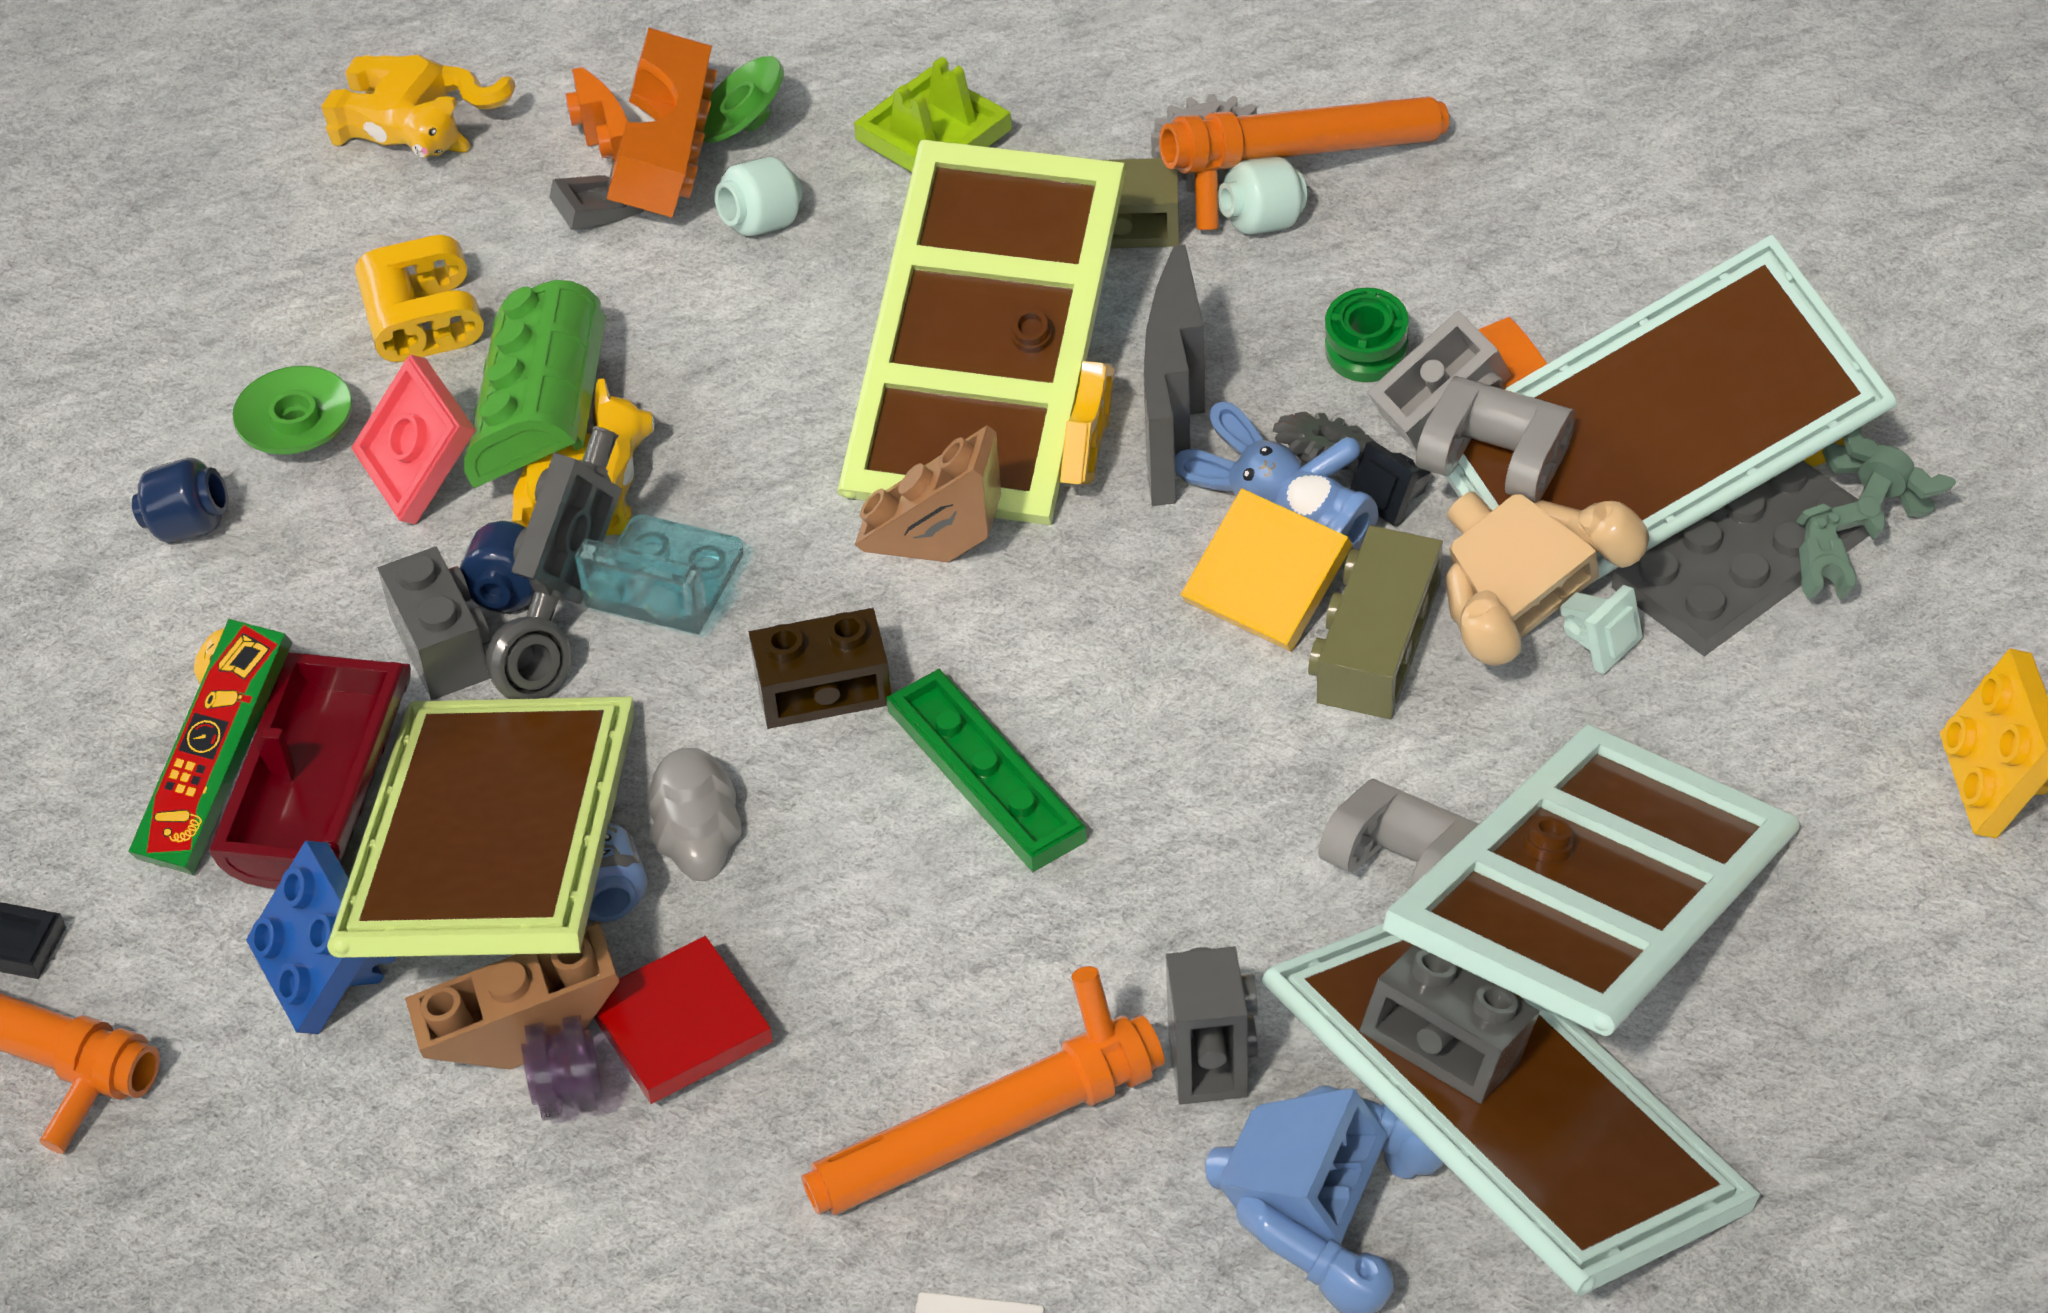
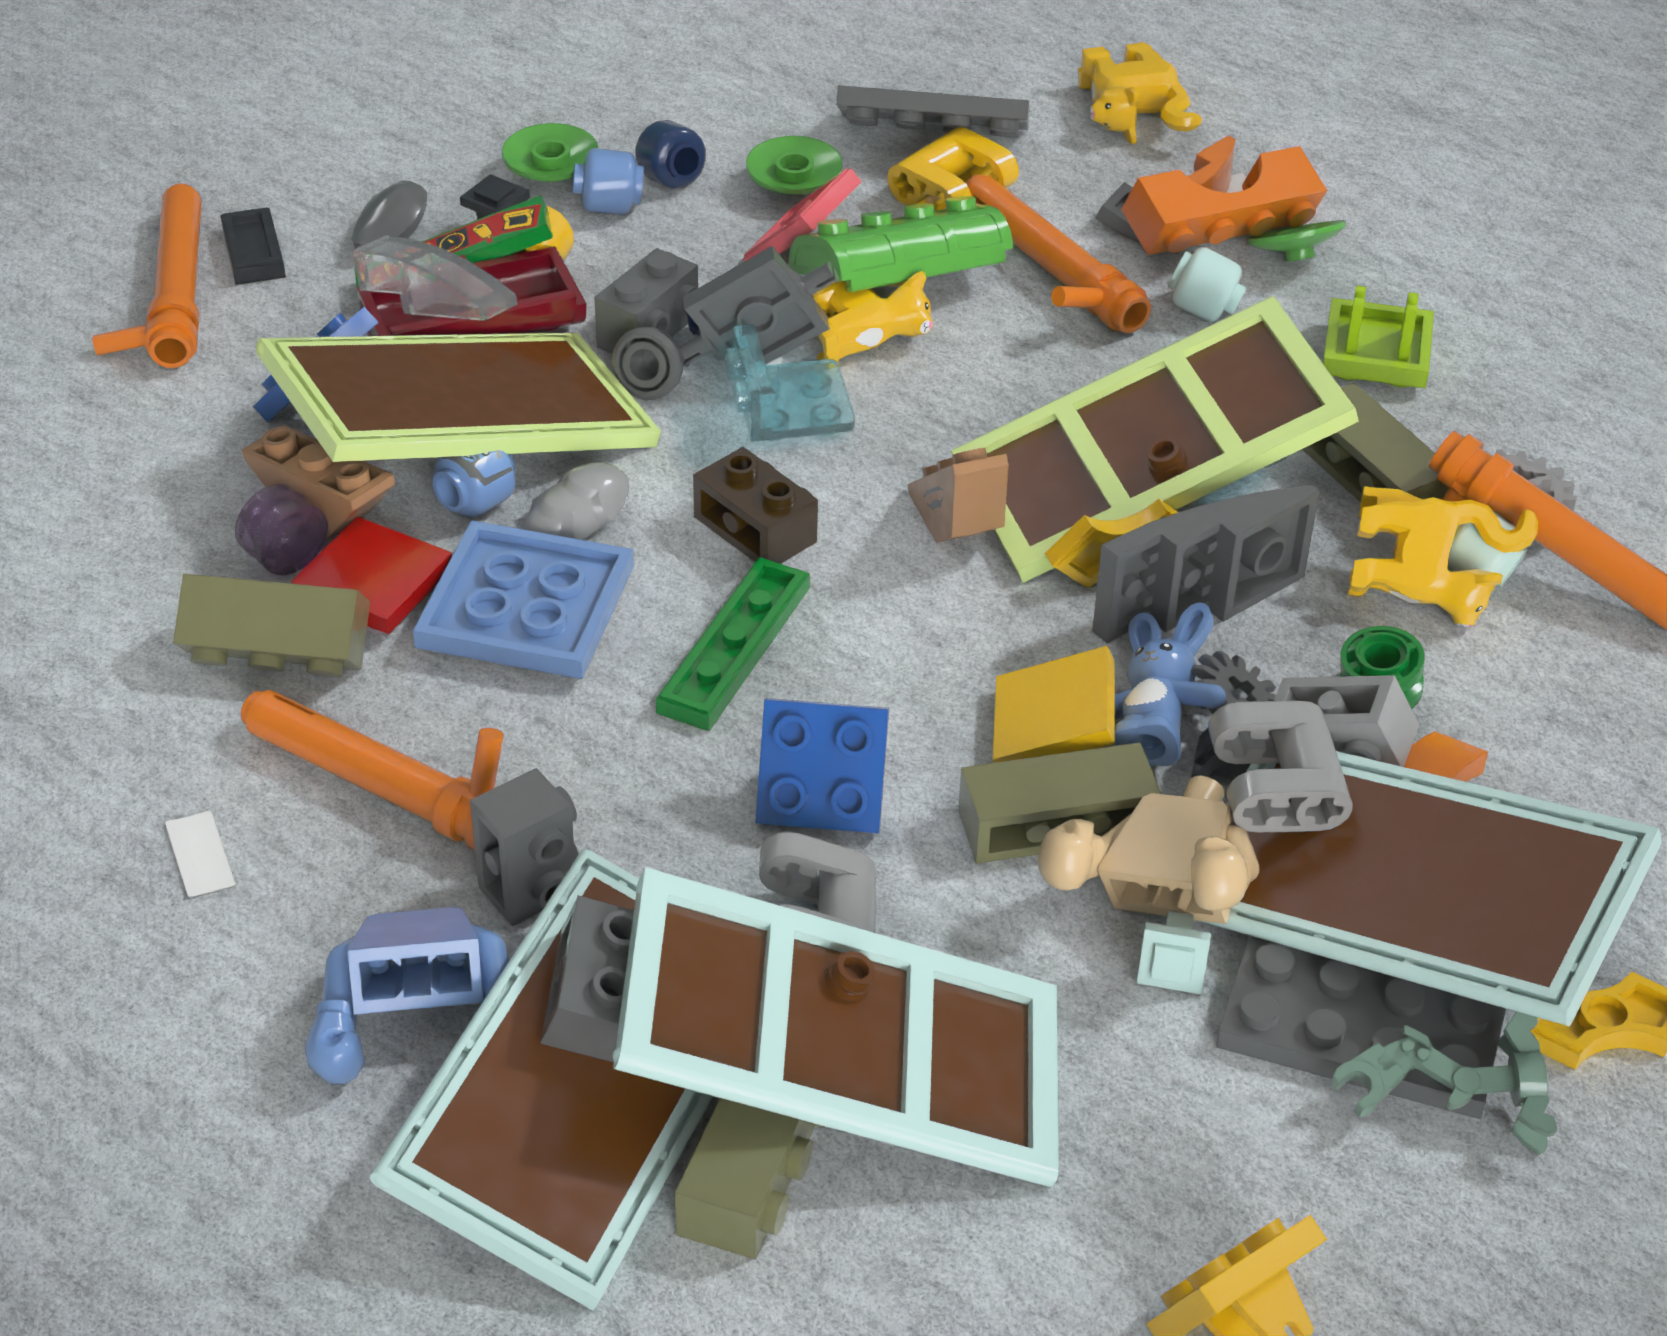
camera: 55 degrees right, 5 degrees down
(63, 787) = (392, 213): none -> dark grey arm
(80, 599) = (547, 151): none -> bright green dish
(145, 679) = (493, 195): none -> black brick
(185, 570) = (608, 181): none -> medium blue head
(290, 771) = (430, 280): none -> clear slope
(307, 266) = (915, 108): none -> dark grey plate
(696, 272) = (1086, 280): none -> orange cylinder
(713, 1127) = (271, 624): none -> olive brick
(811, 905) = (524, 599): none -> medium blue plate
(1239, 760) = (822, 765): none -> blue plate
(1253, 228) = (1422, 550): none -> yellow animal
(1692, 1039) = (741, 1177): none -> olive brick

